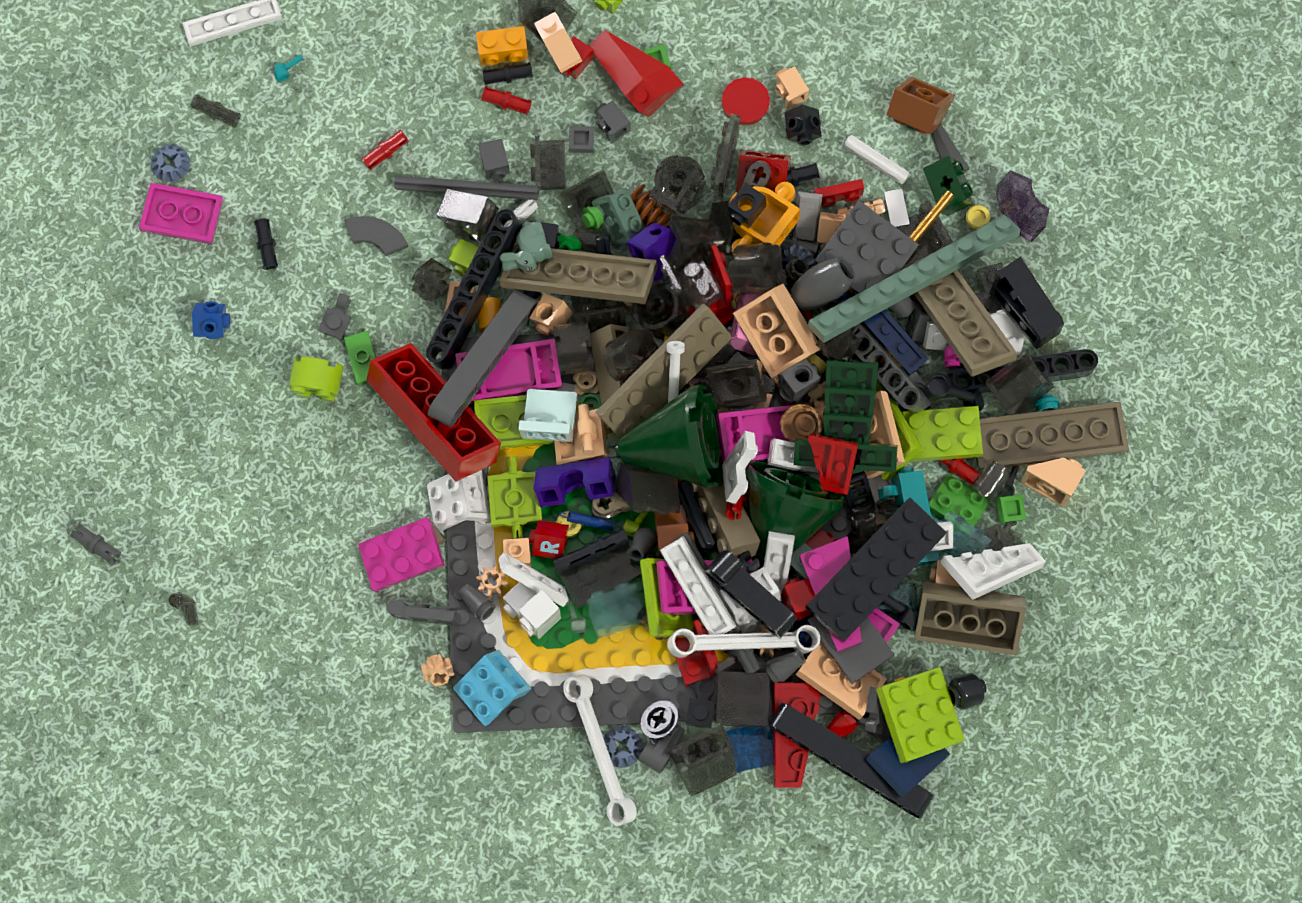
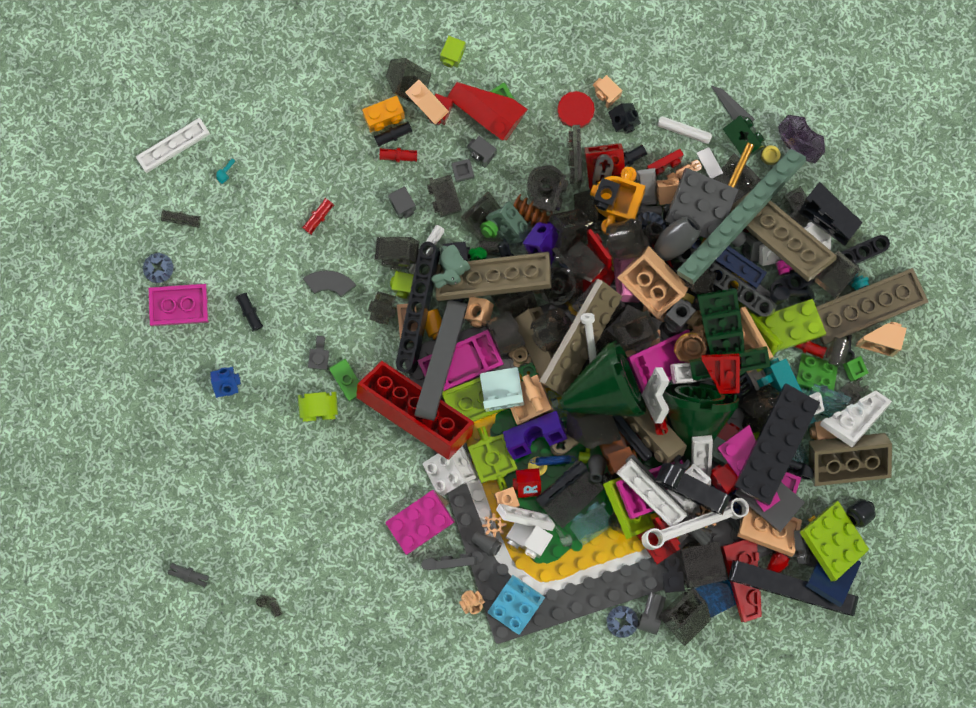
camera: 20 degrees left, 5 degrees up
(487, 189) = (389, 229): dark grey axle -> none
(600, 750) = (608, 629): white piece -> none
(659, 710) = (642, 589): gear -> none
(784, 666) = (726, 533): dark grey cone -> none
(919, 105) = (706, 80): dark orange slope -> none

